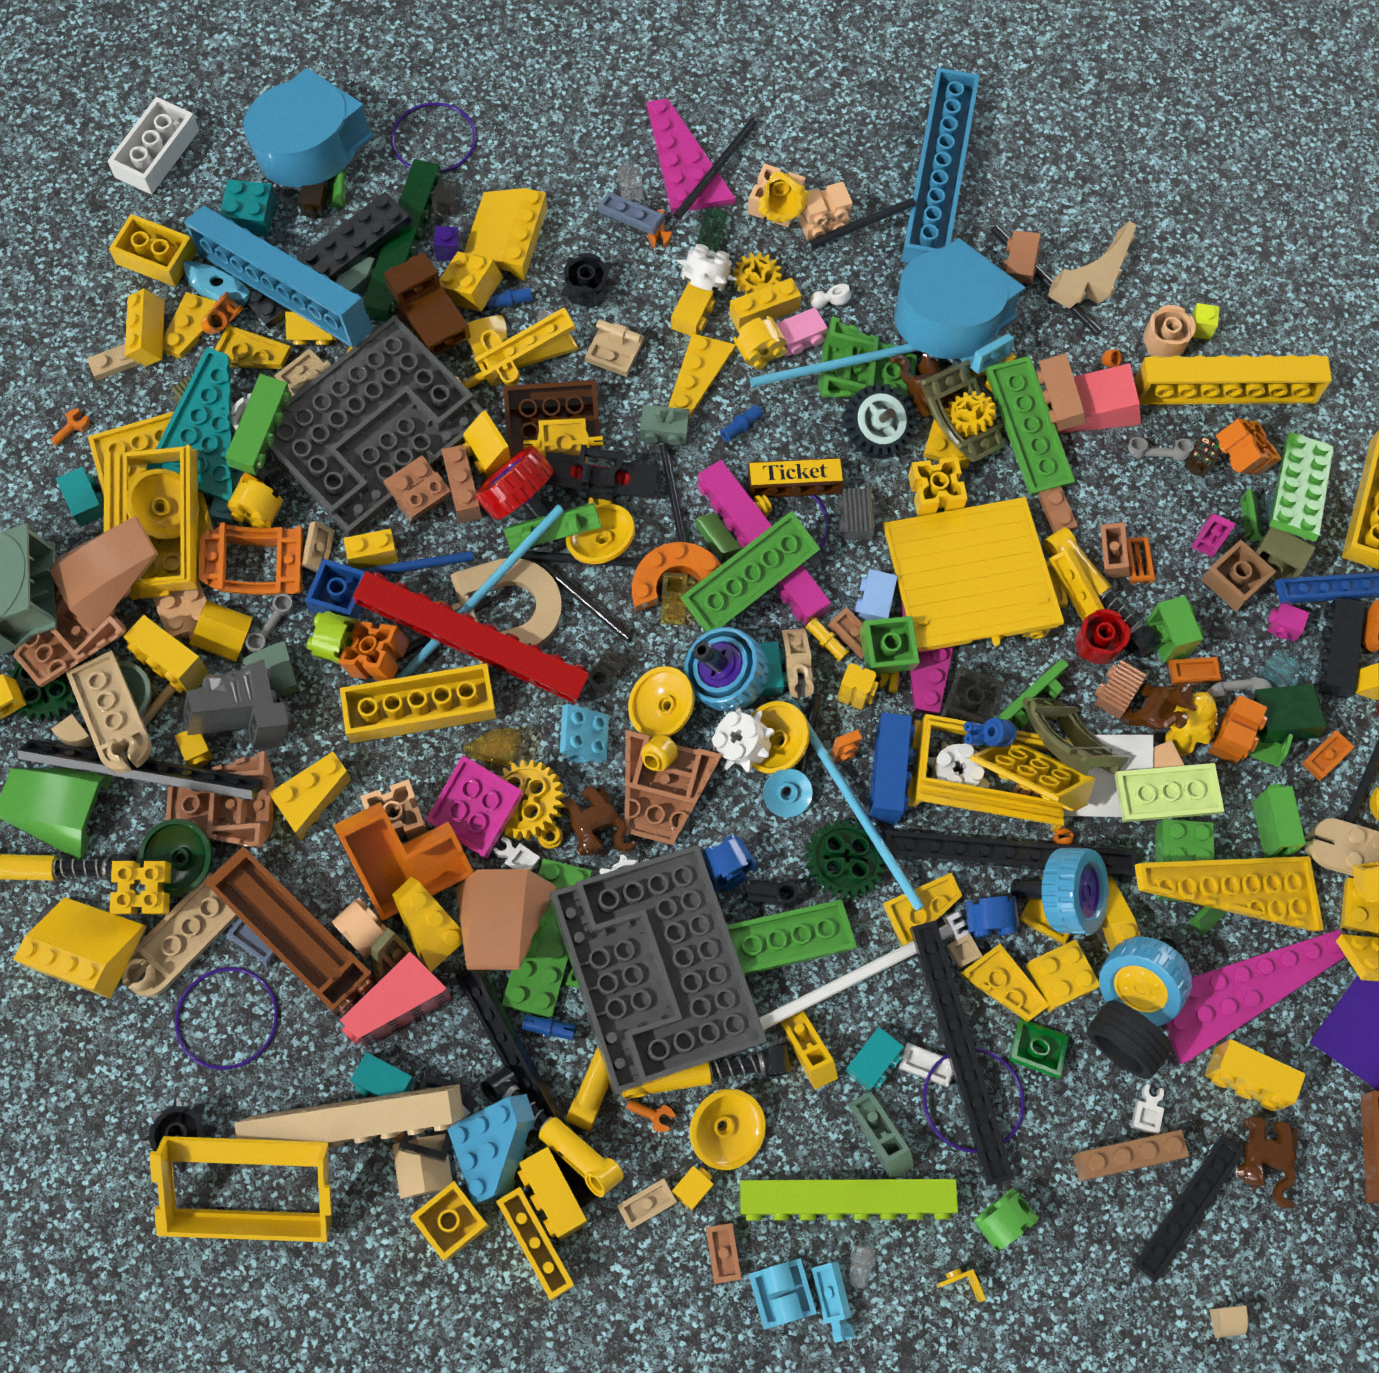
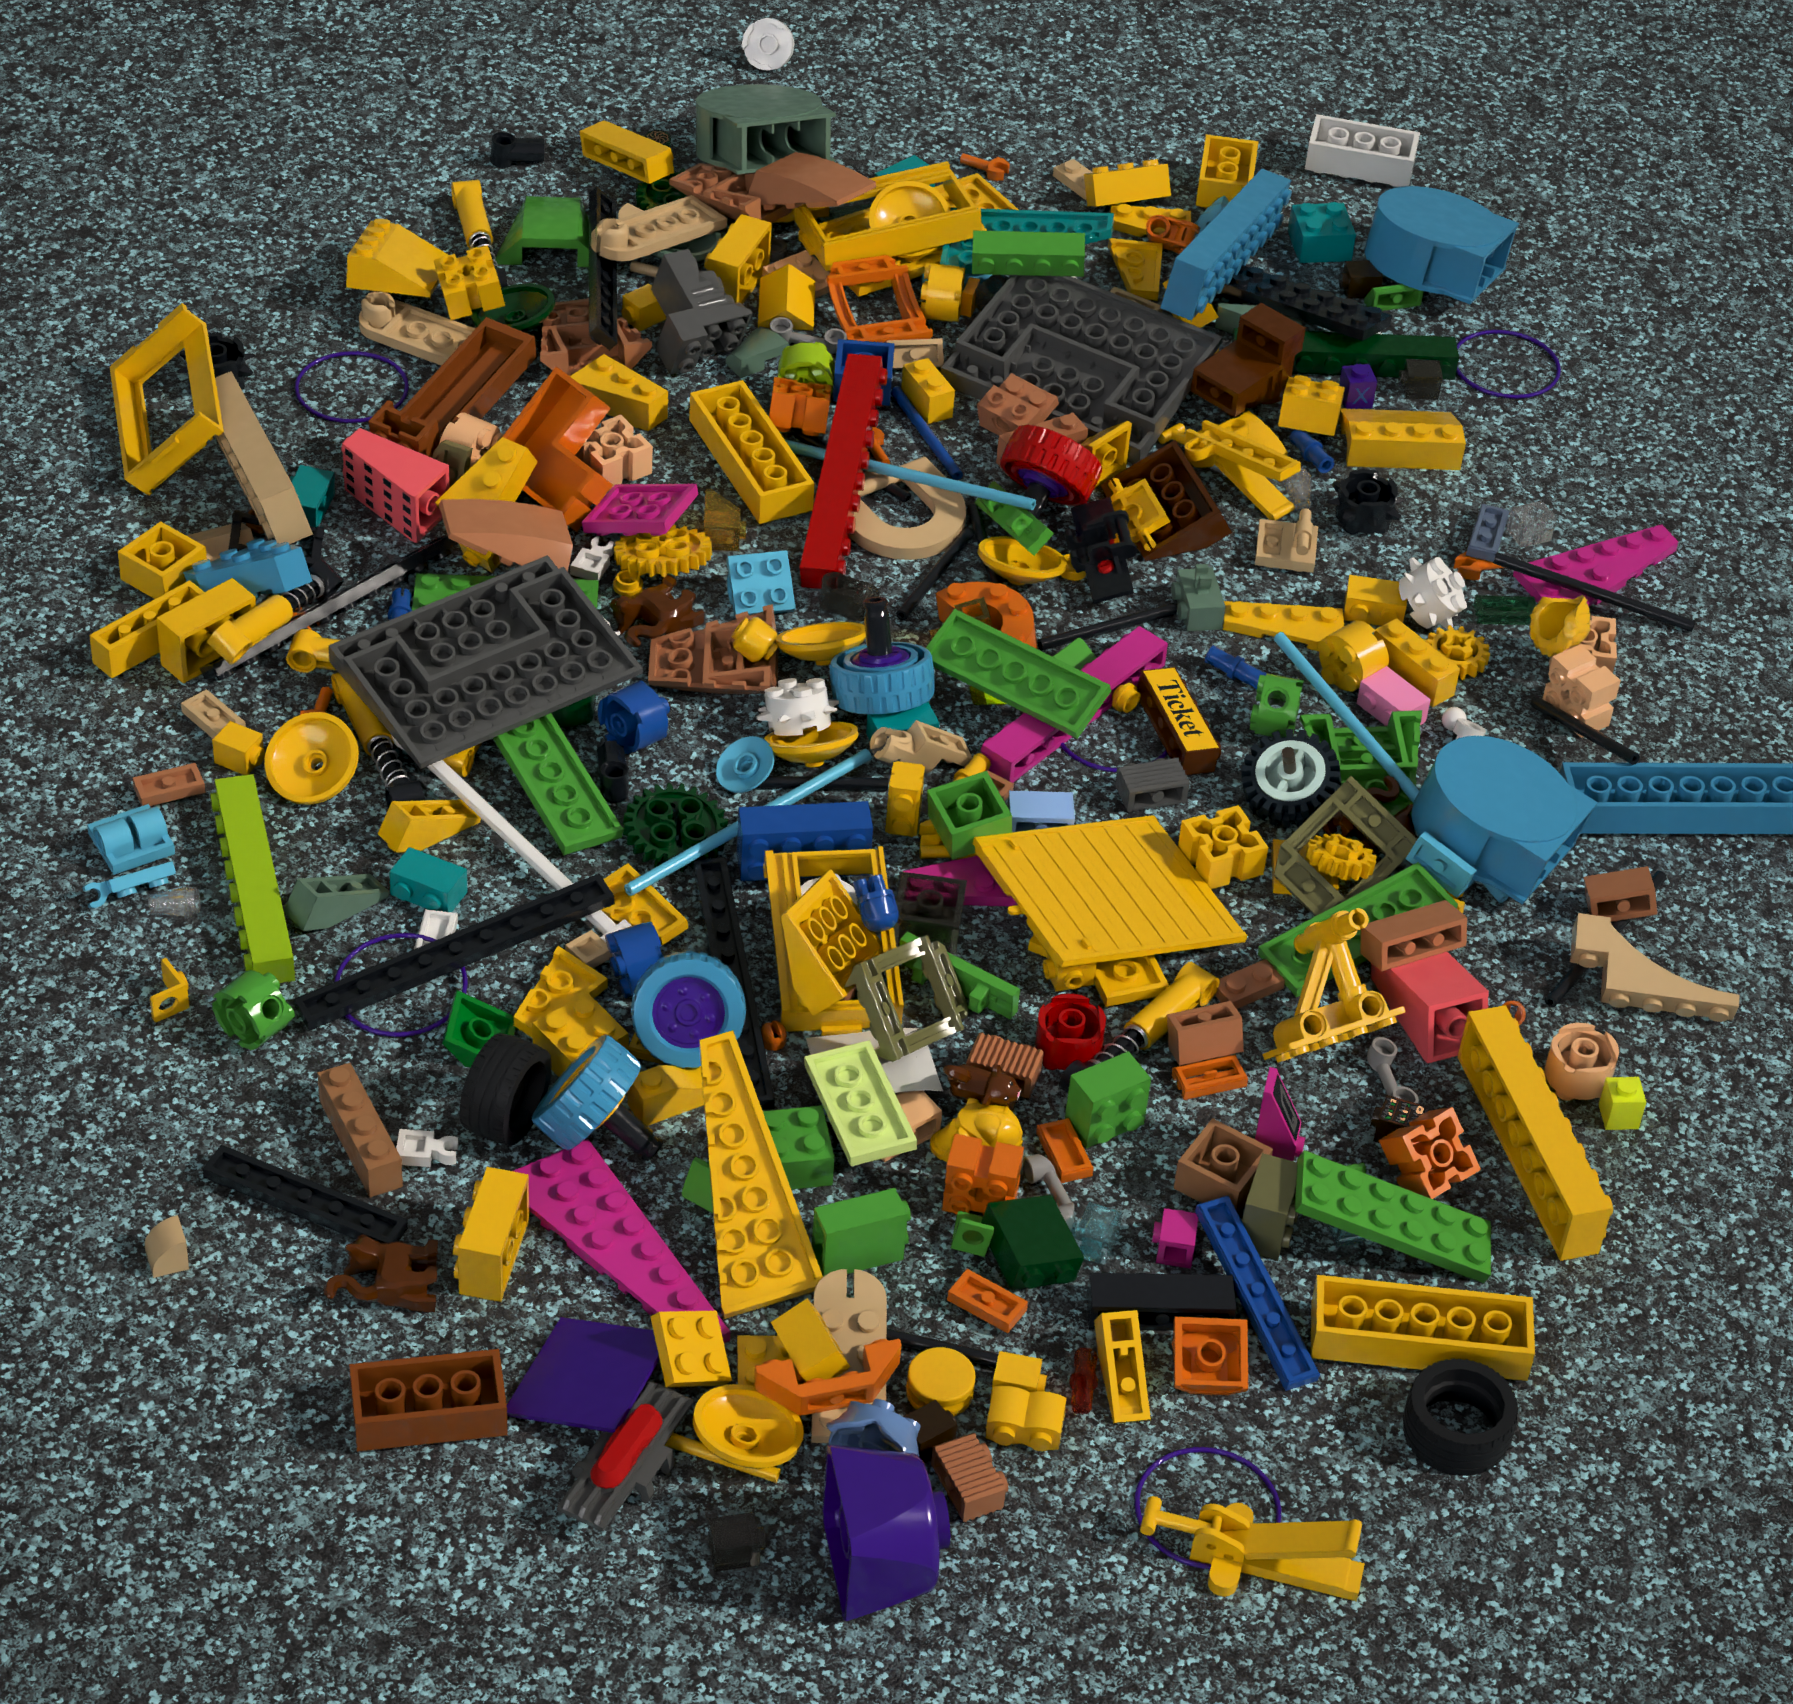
camera: 75 degrees right, 25 degrees down
(803, 407) = (1276, 691): none -> bright green brick
(846, 746) = (820, 786): orange plate -> none
(1076, 583) = (1138, 994): yellow plate -> none
(1115, 457) = (1357, 1009): none -> yellow plate

